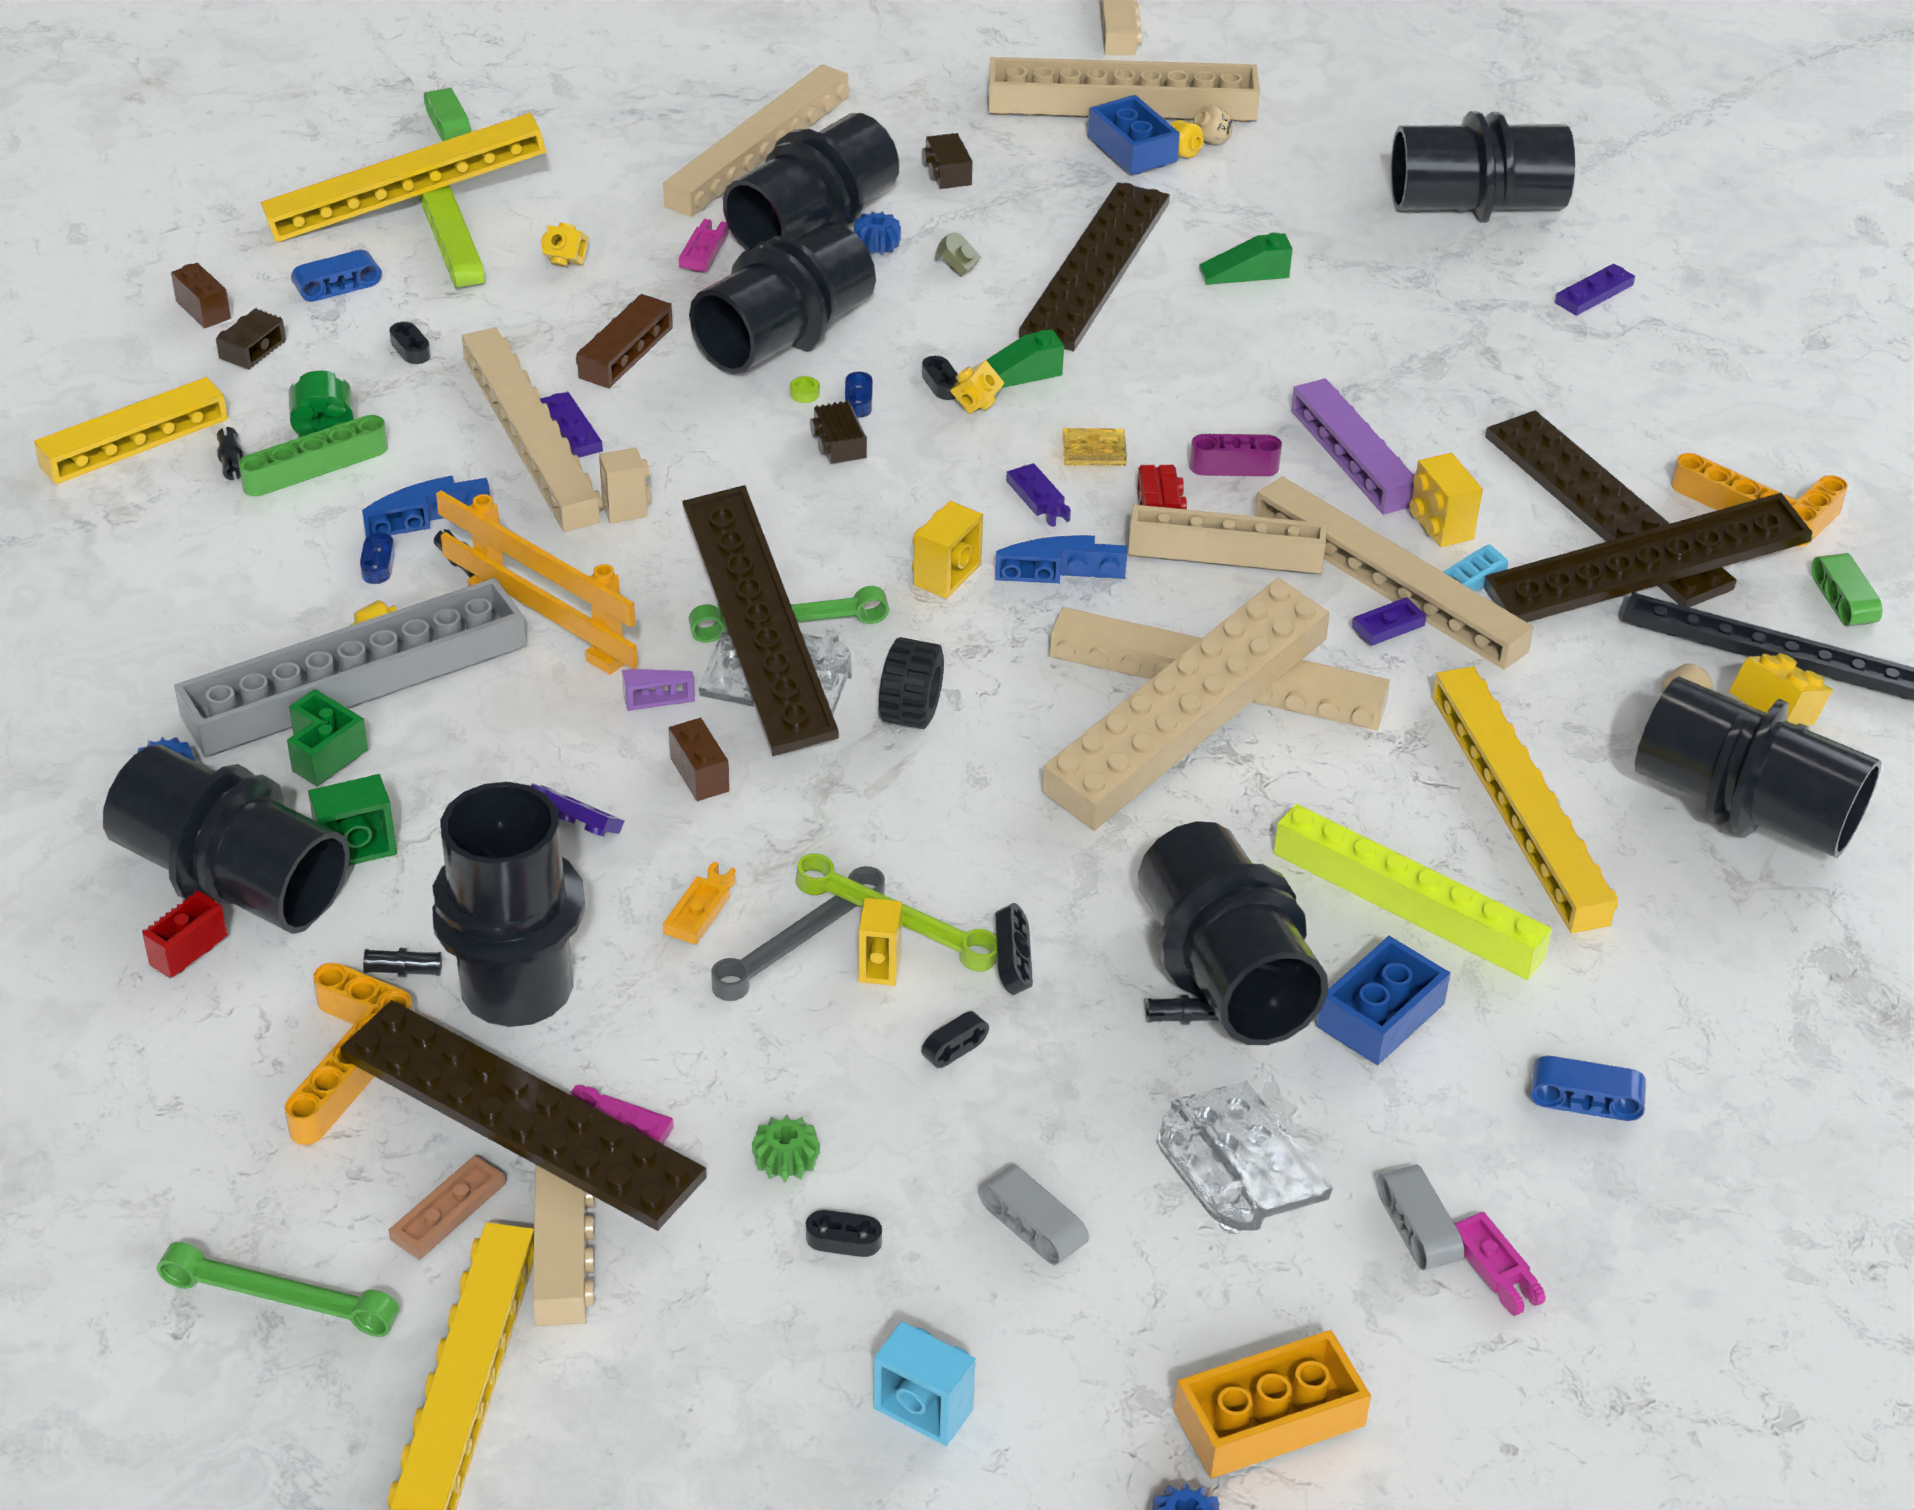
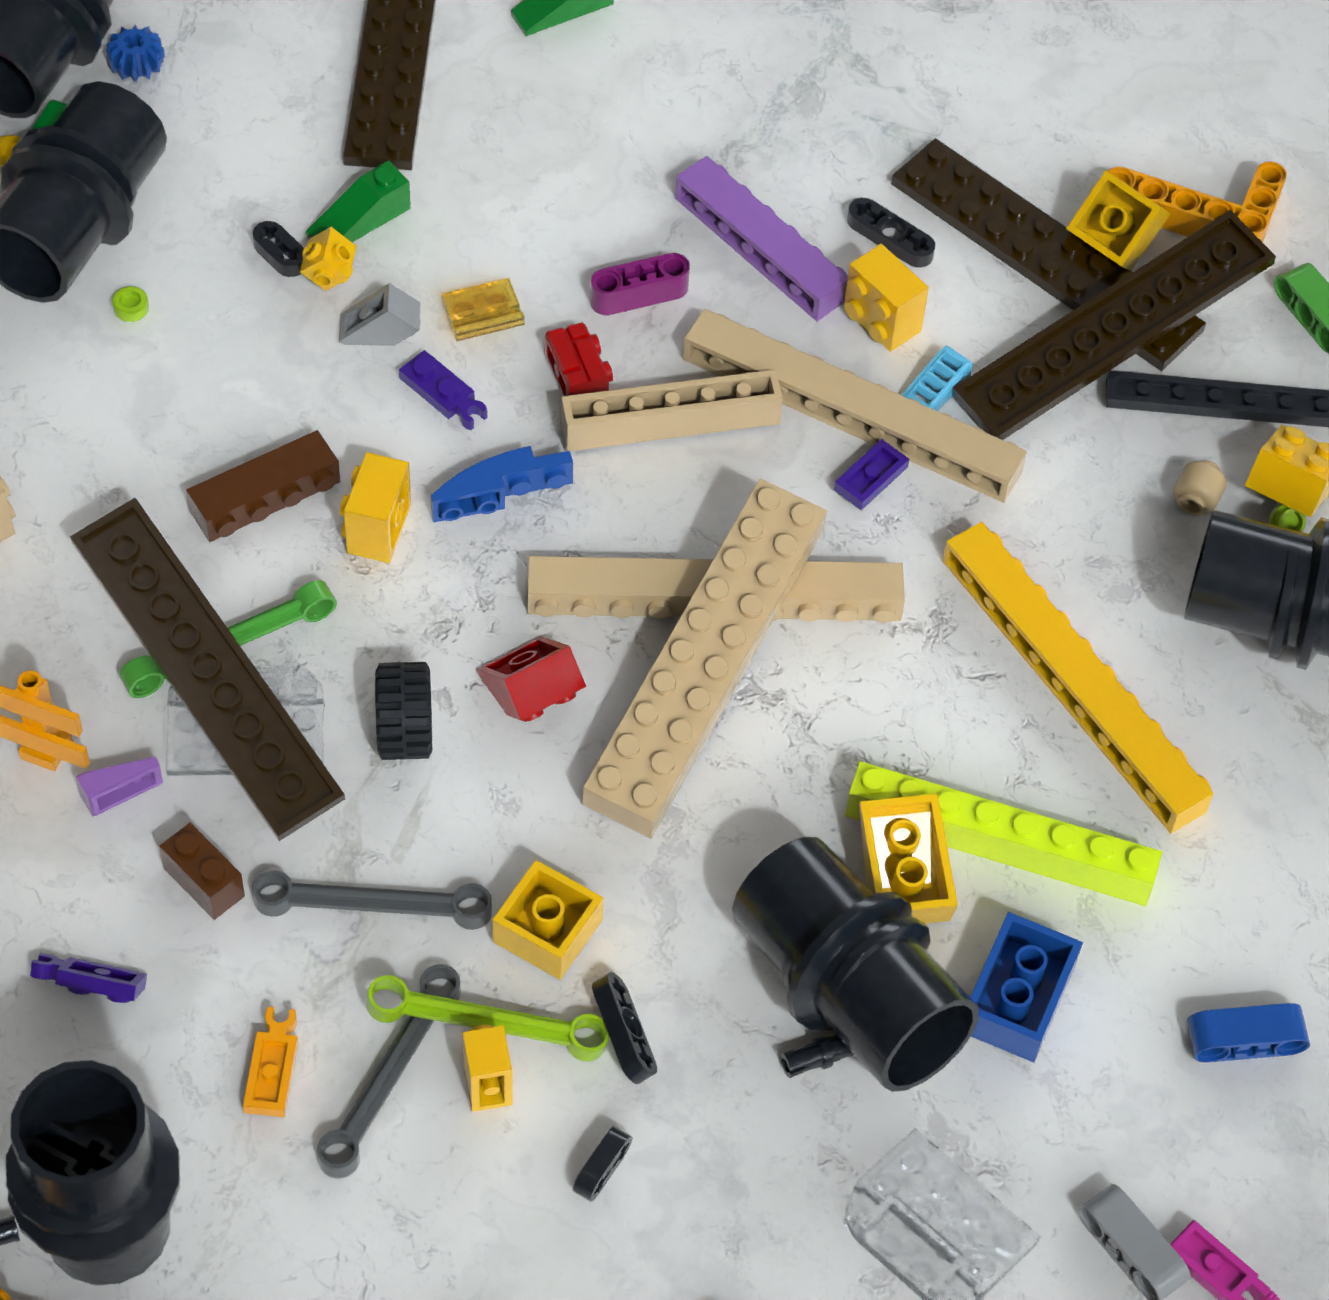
camera: 20 degrees left, 15 degrees up
(835, 814) = (372, 899): none -> dark grey piece
(839, 432) = (194, 362): dark brown brick -> none
(859, 394) = (200, 295): clear blue beam -> none
(859, 521) = (263, 486): none -> reddish brown brick
(957, 253) = (238, 62): olive plate -> none
(976, 855) = (547, 919): none -> yellow brick
(1006, 434) = (381, 318): none -> light grey slope
(1035, 694) = (533, 678): none -> red slope
(1318, 871) = (909, 854): none -> yellow slope
(1487, 474) = (883, 219): none -> black beam
(1677, 485) = (1118, 221): none -> yellow brick

